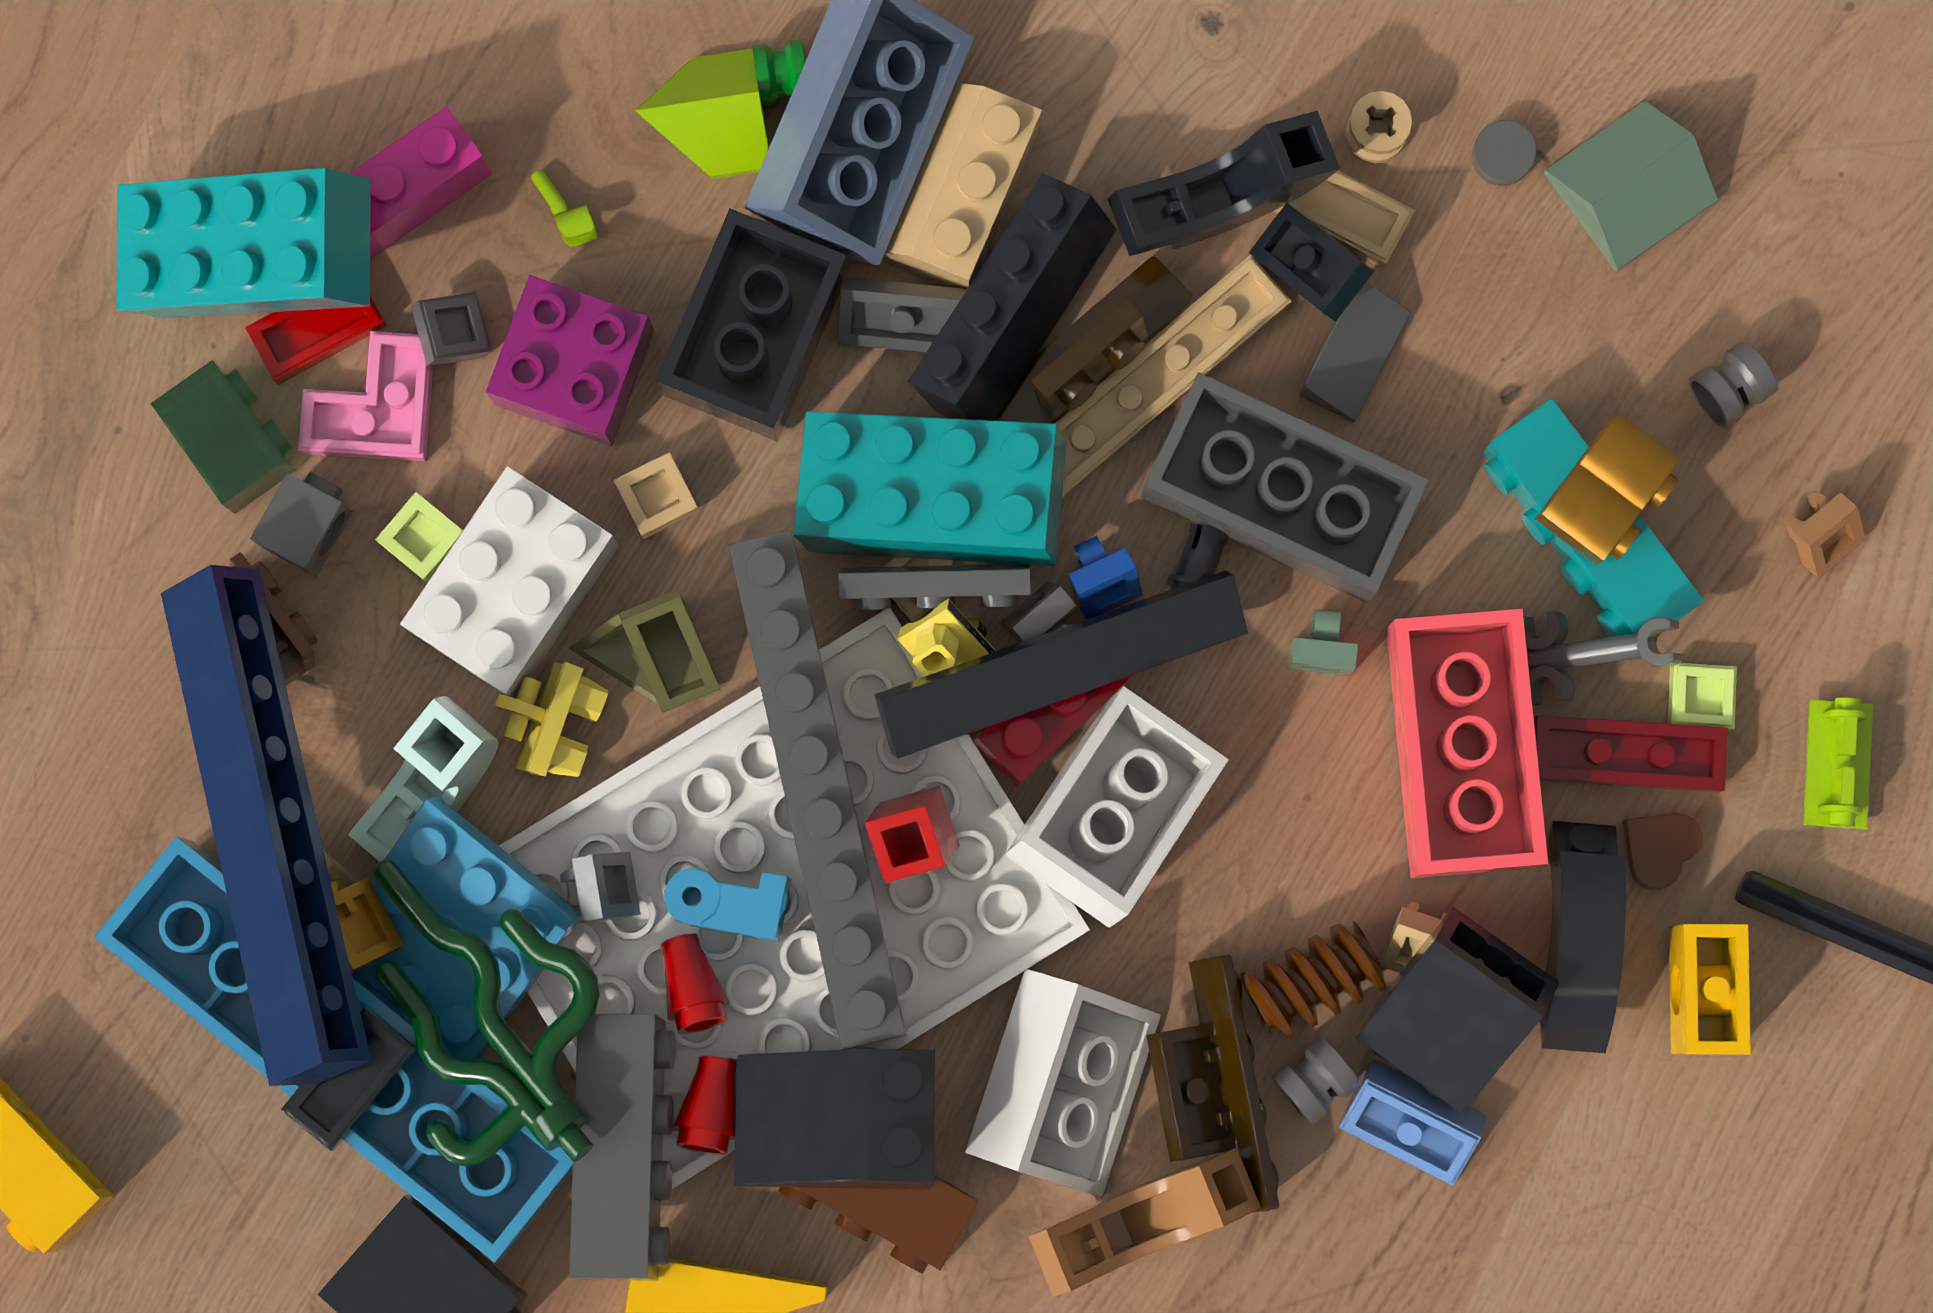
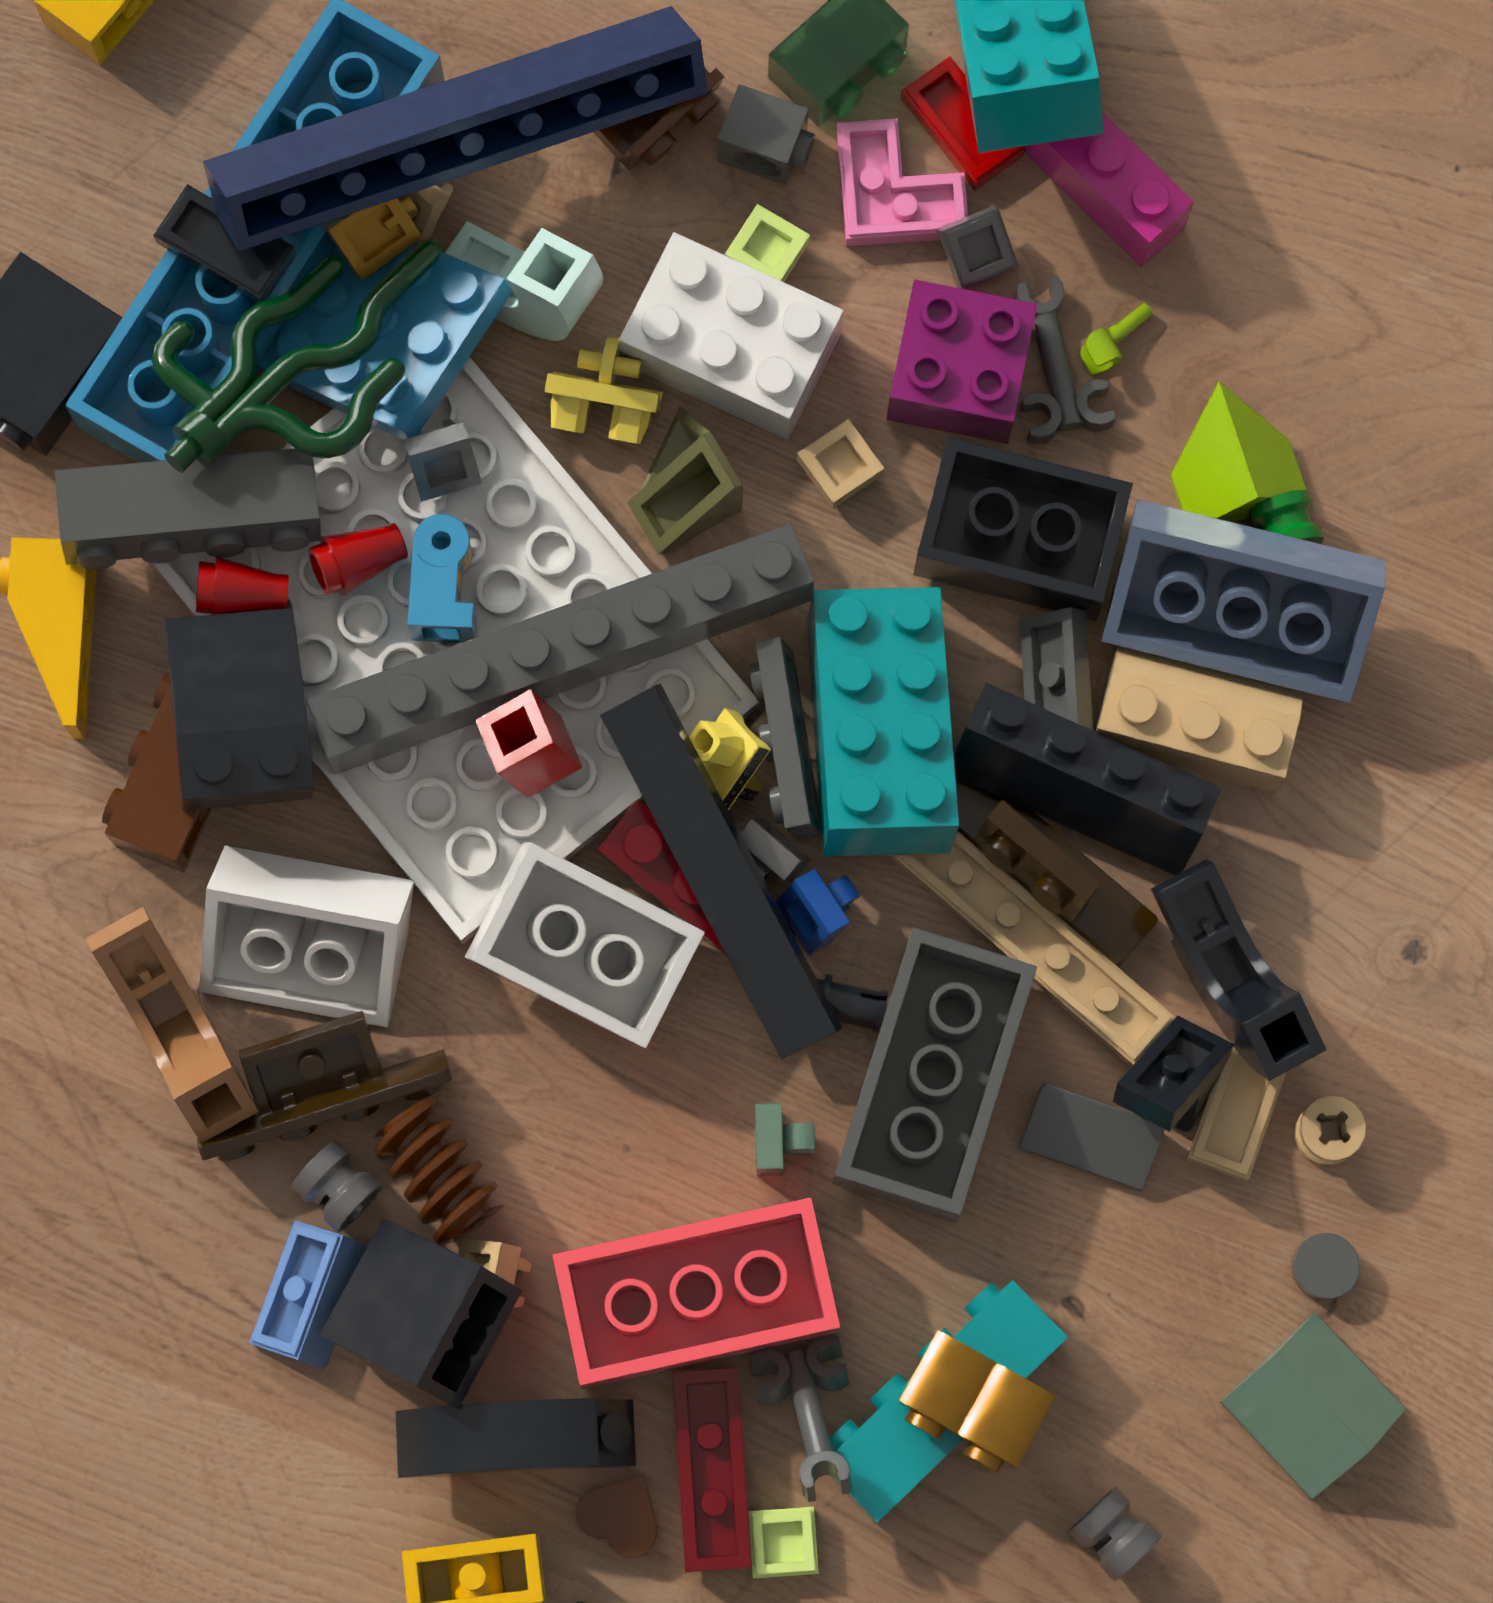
camera: 80 degrees right, 5 degrees down
(627, 269) = (1063, 407): none -> dark grey bar

